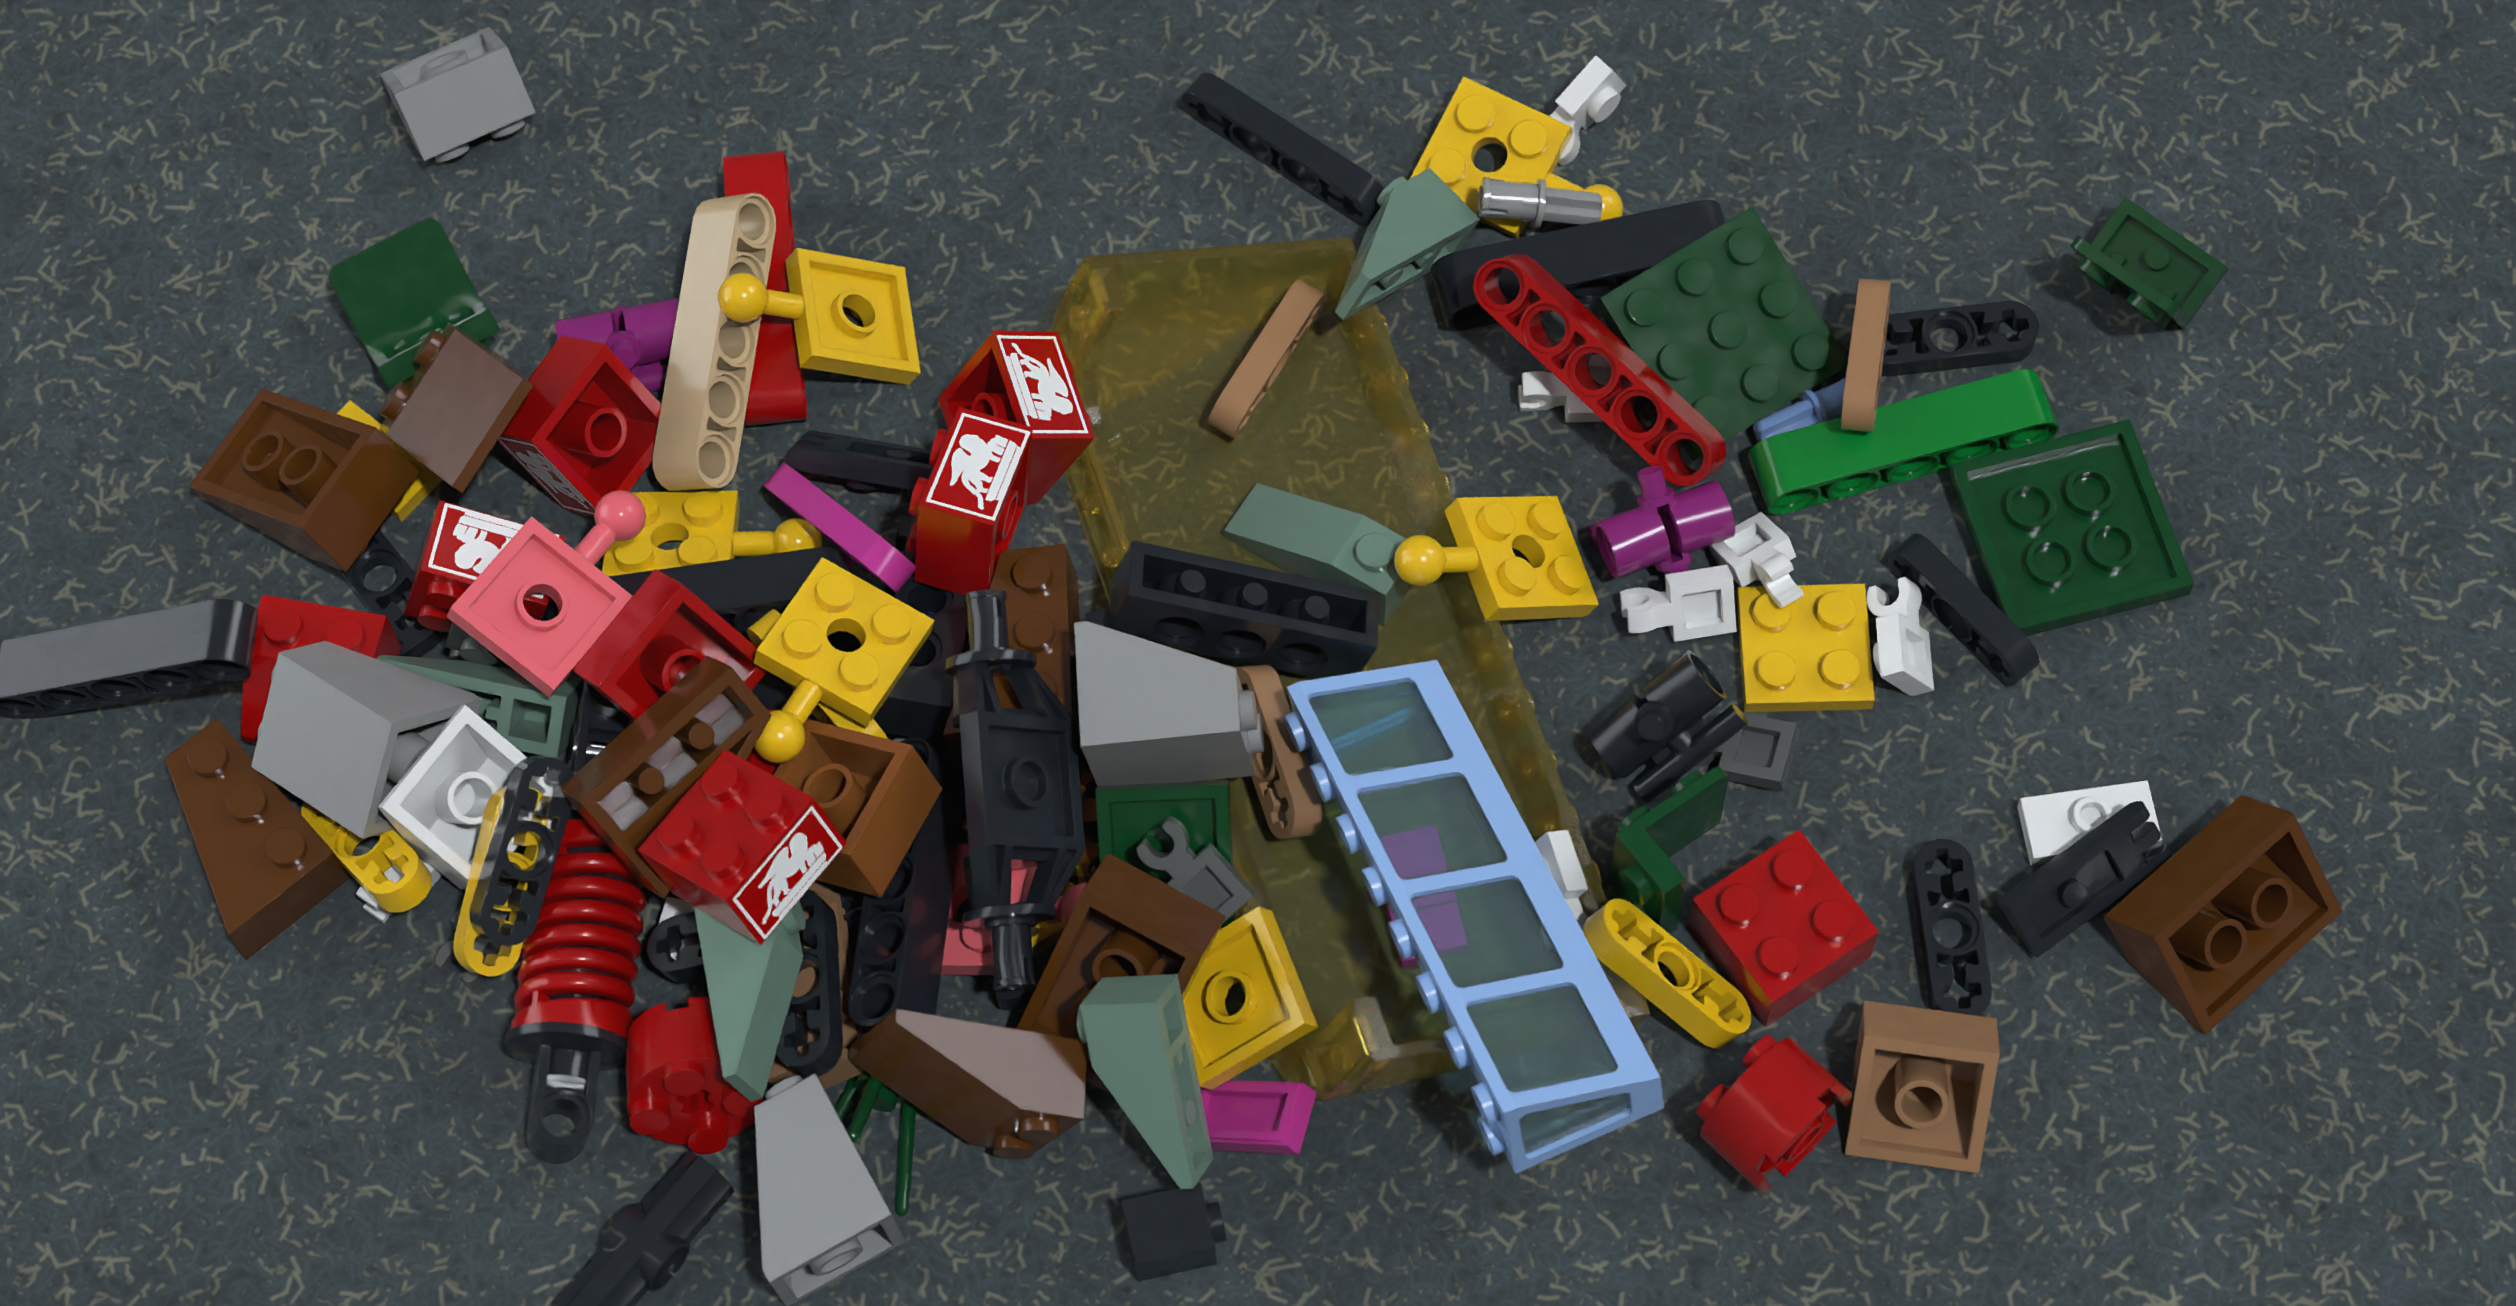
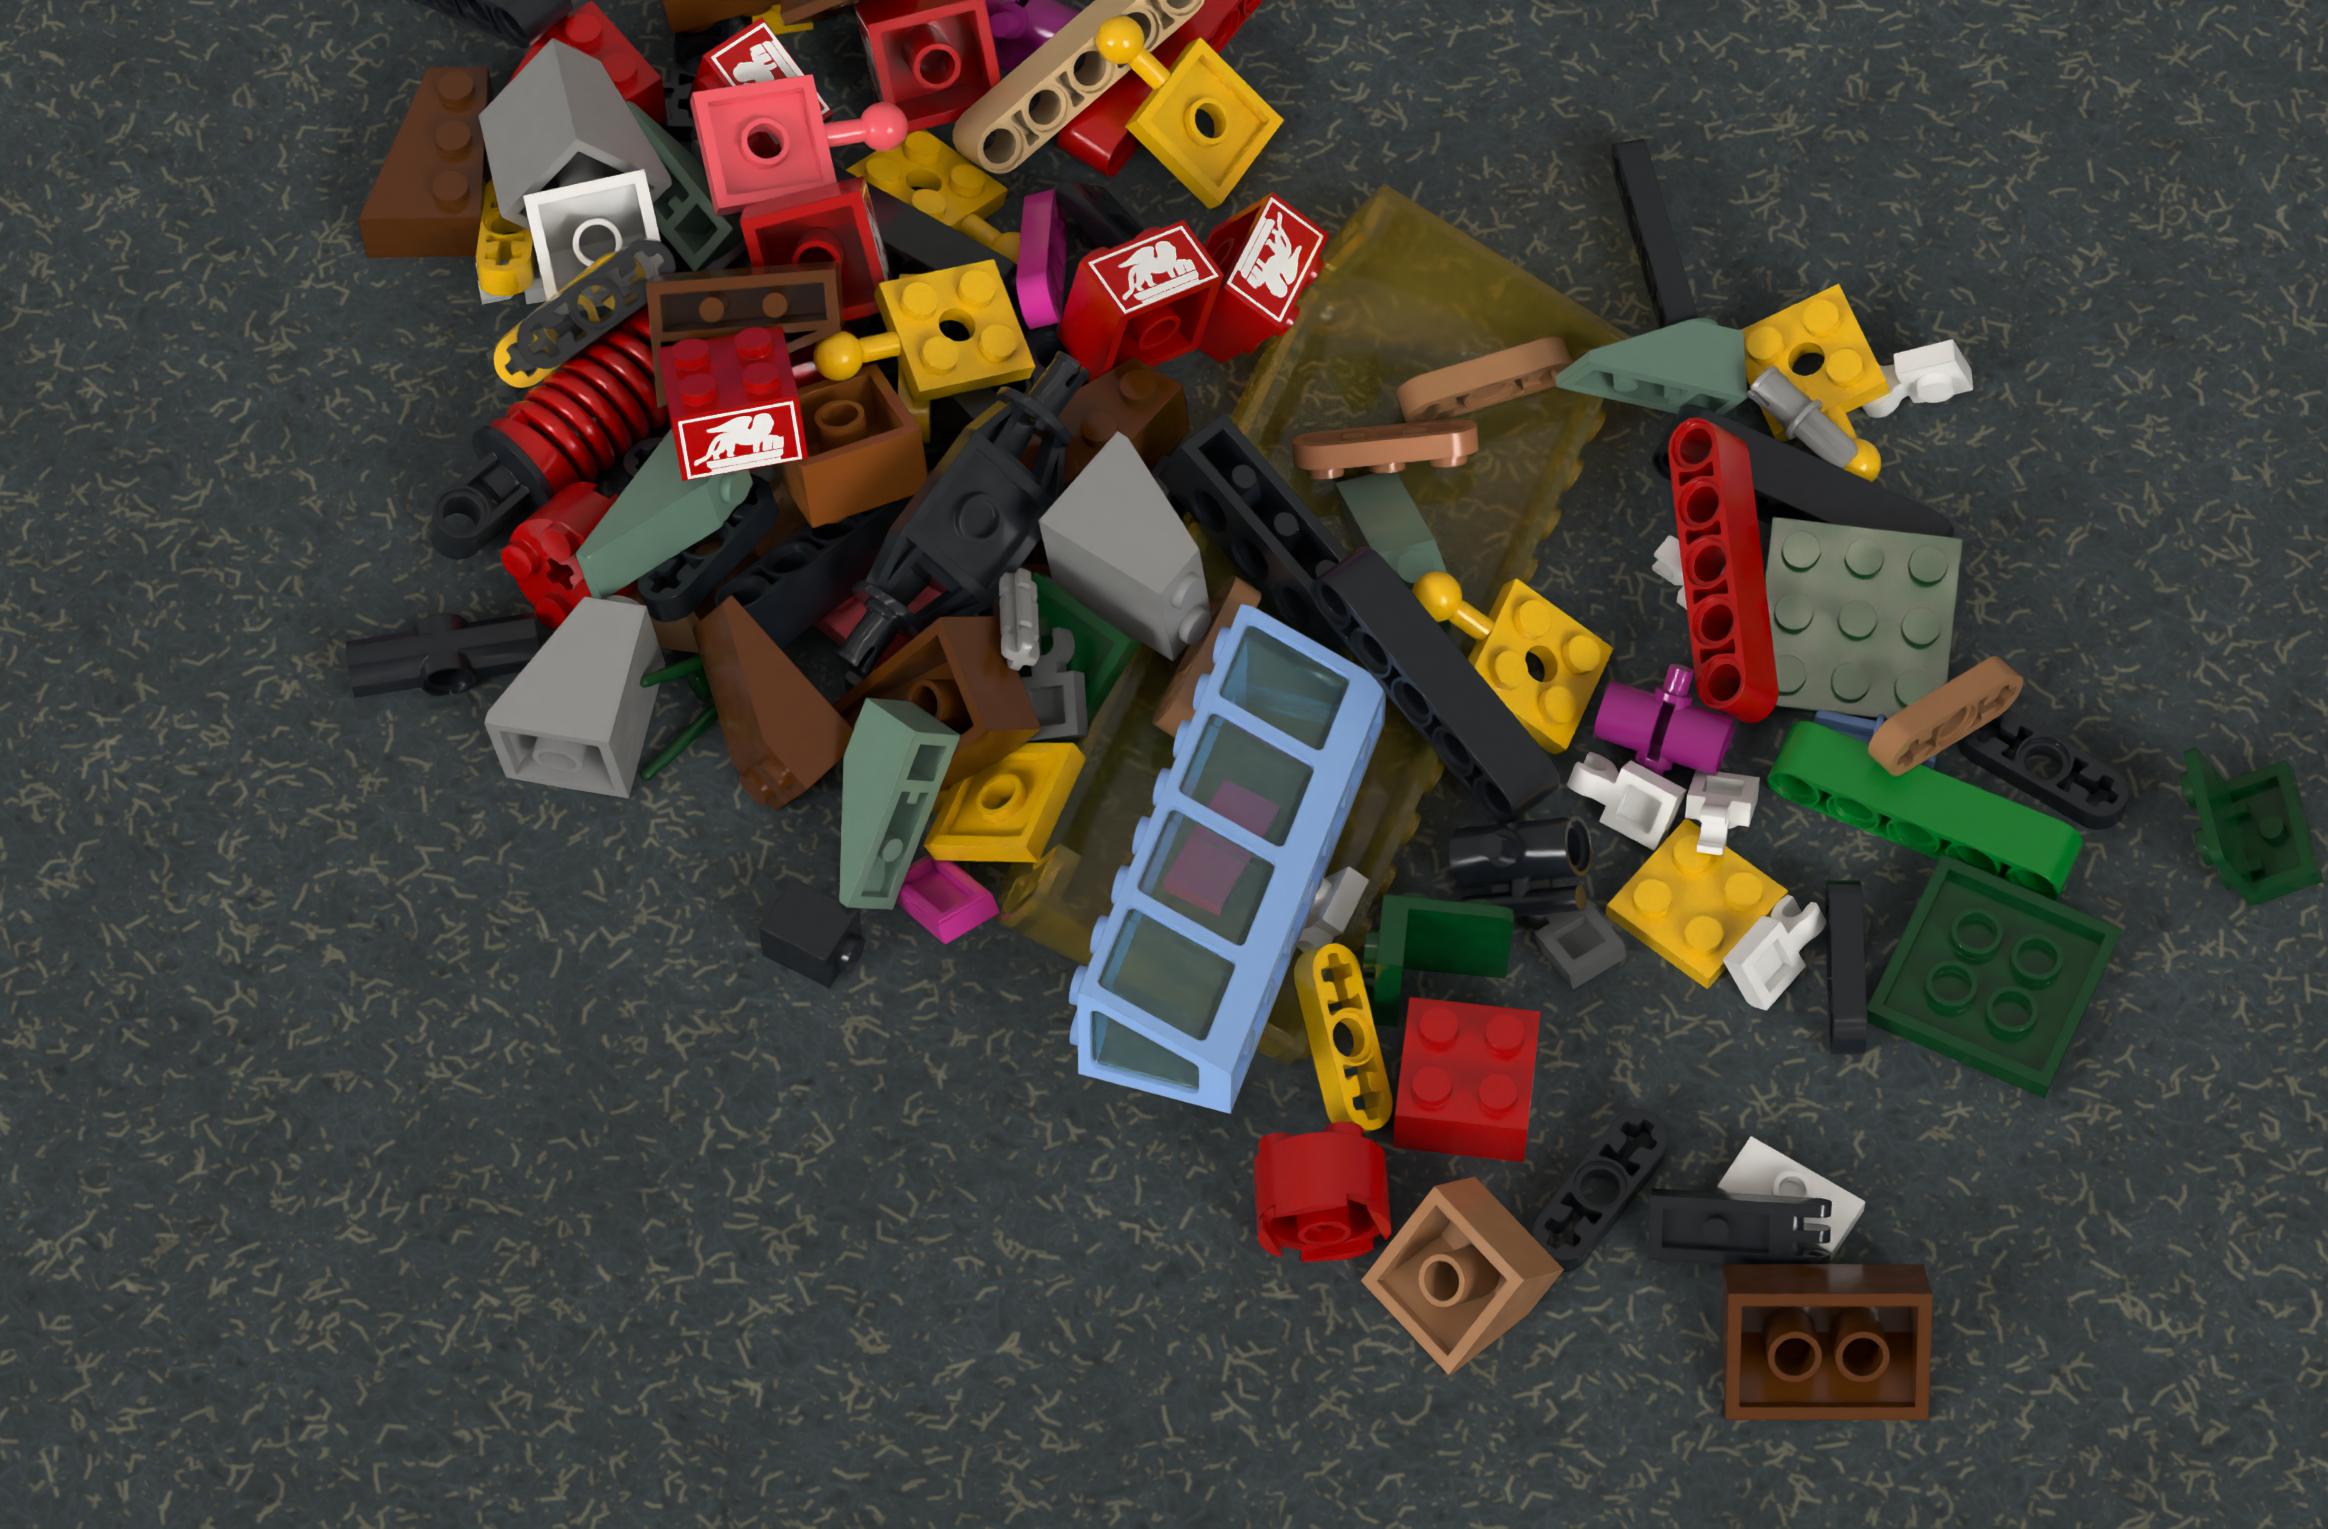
camera: 40 degrees right, 5 degrees down
(1129, 840) = (1019, 619): none -> light grey axle
(1239, 470) = (1385, 447): none -> nougat plate
(1481, 633) = (1434, 685): none -> black beam

